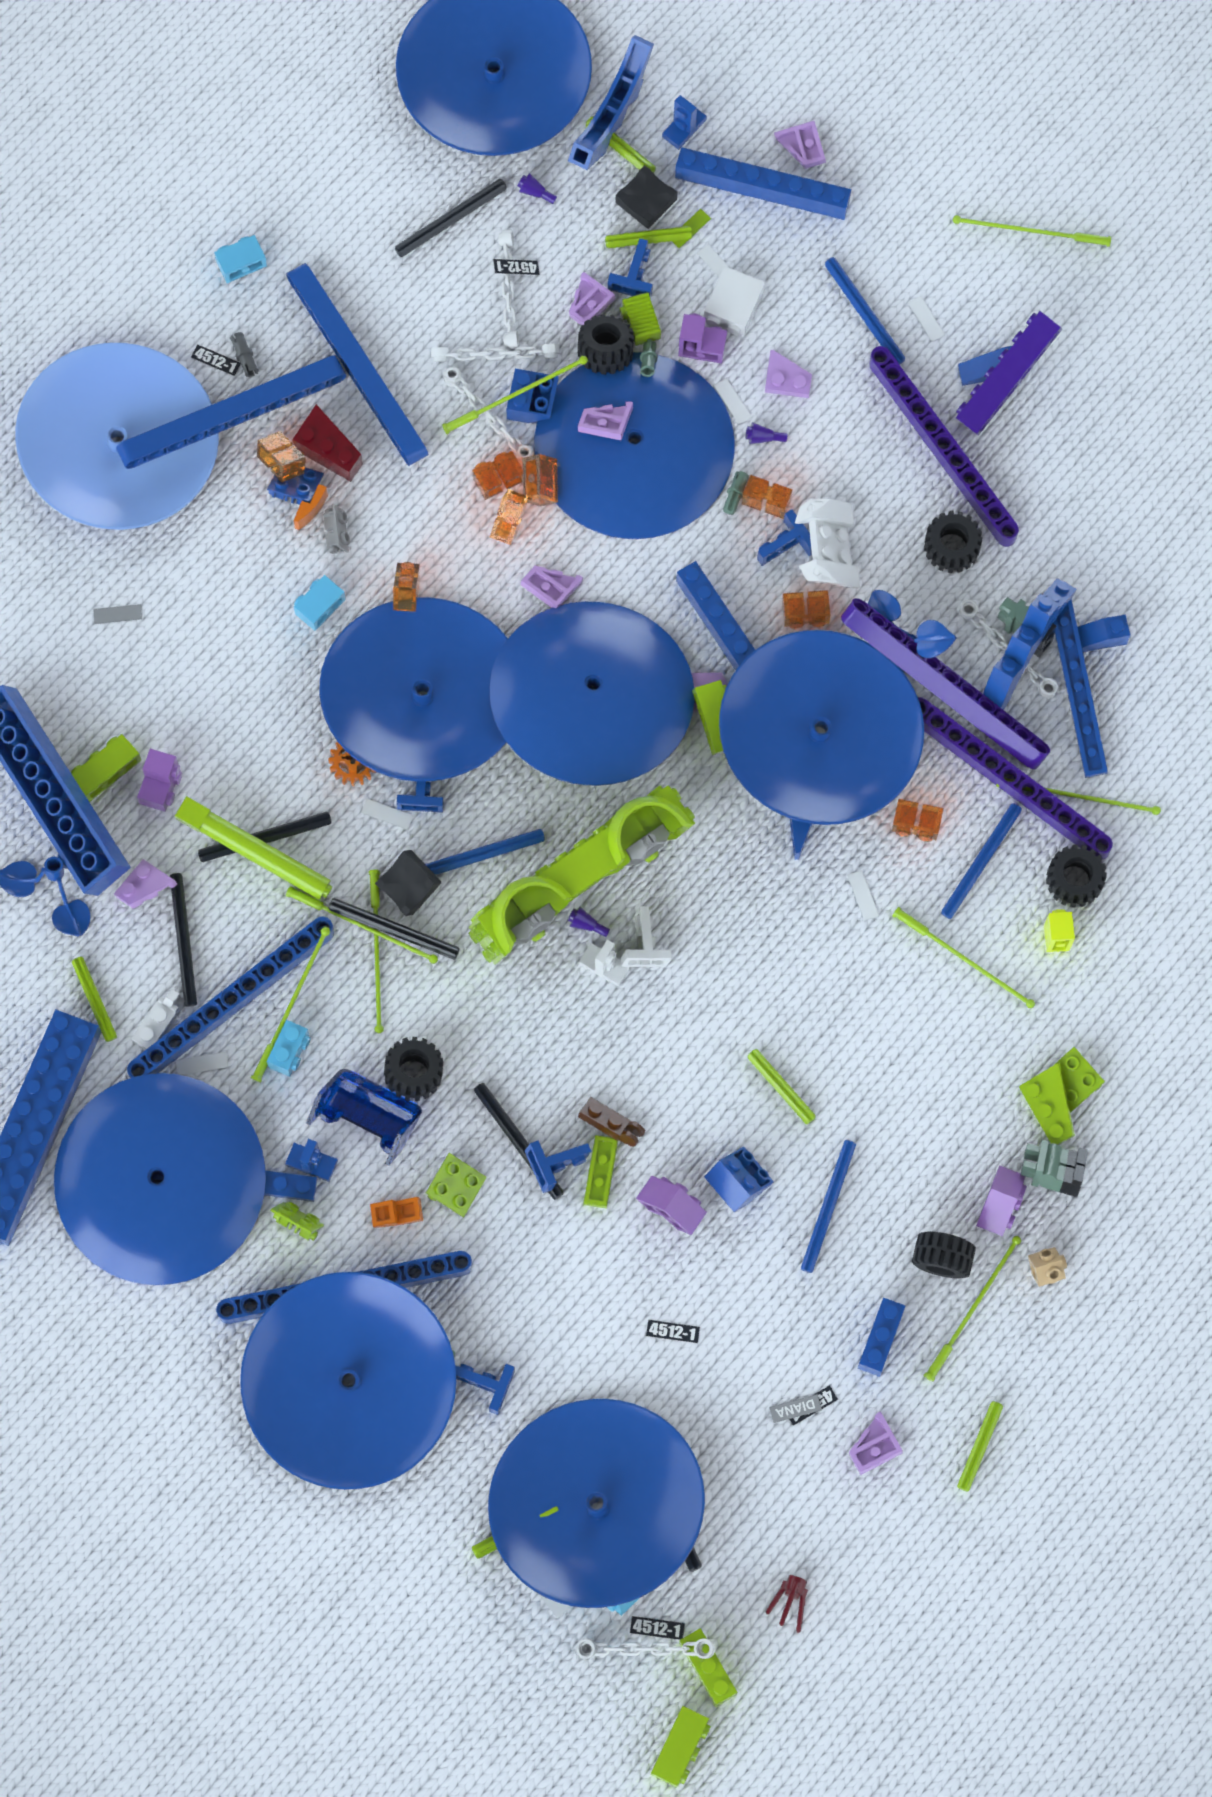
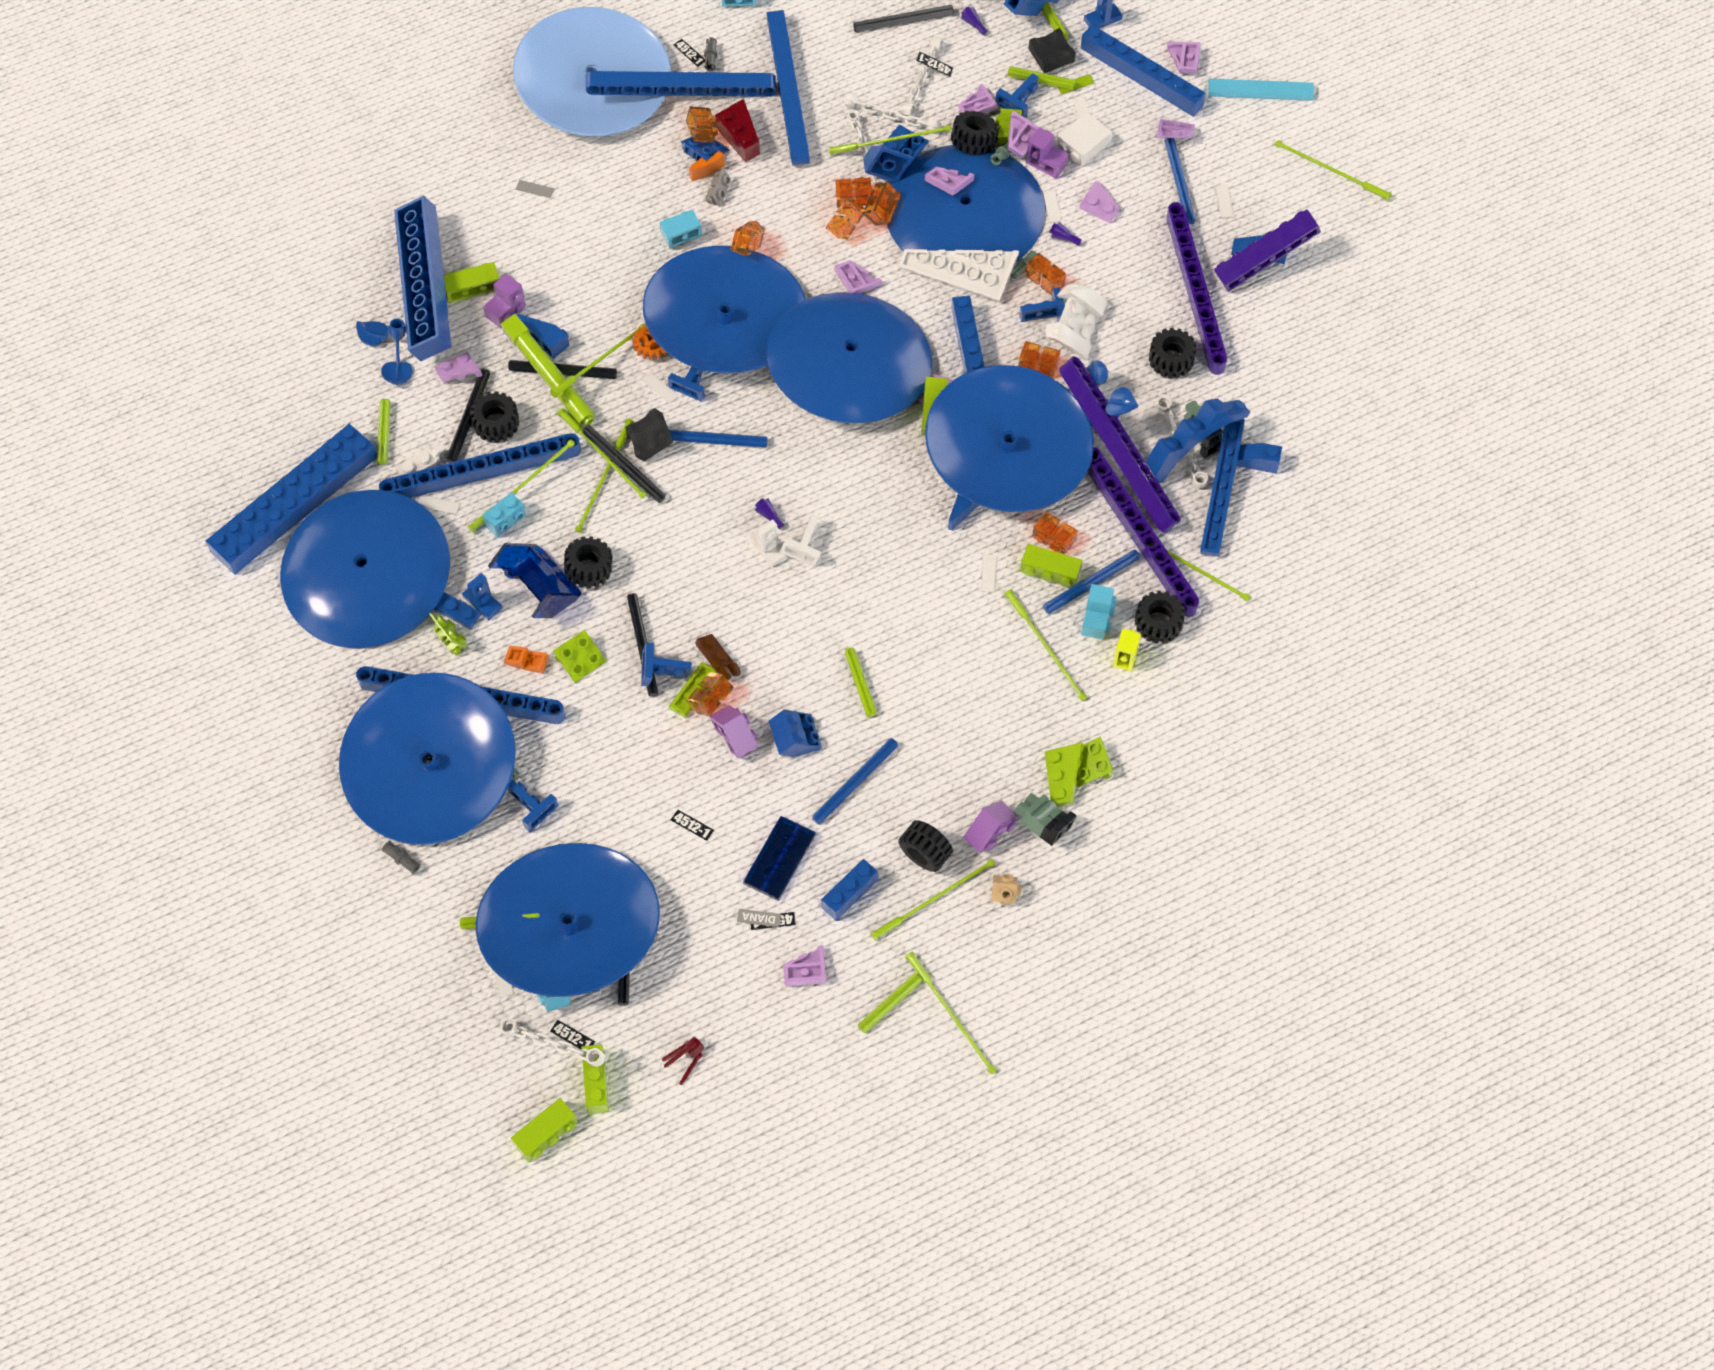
camera: 25 degrees right, 10 degrees down
(218, 912) = (494, 404): none -> black tyre
(225, 802) = (547, 335): none -> blue slope
(289, 852) = (572, 379): none -> lime piece
(372, 1505) = (401, 857): none -> dark grey pin
(522, 426) = (886, 163): none -> blue slope
(624, 840) = (823, 452): lime piece -> none
(627, 1181) = (707, 701): none -> clear orange piece
(663, 327) = (1019, 134): none -> lavender wing
(681, 525) = (970, 270): none -> white wing
(786, 1330) = (779, 858): none -> clear blue tile
(833, 249) = (1174, 129): none -> lavender wing
(907, 155) = (1260, 89): none -> medium azure tile
(930, 861) = (1051, 565): none -> lime brick
(1006, 898) = (1099, 608): none -> medium azure brick
(1006, 1402) = (926, 979): none -> lime piece

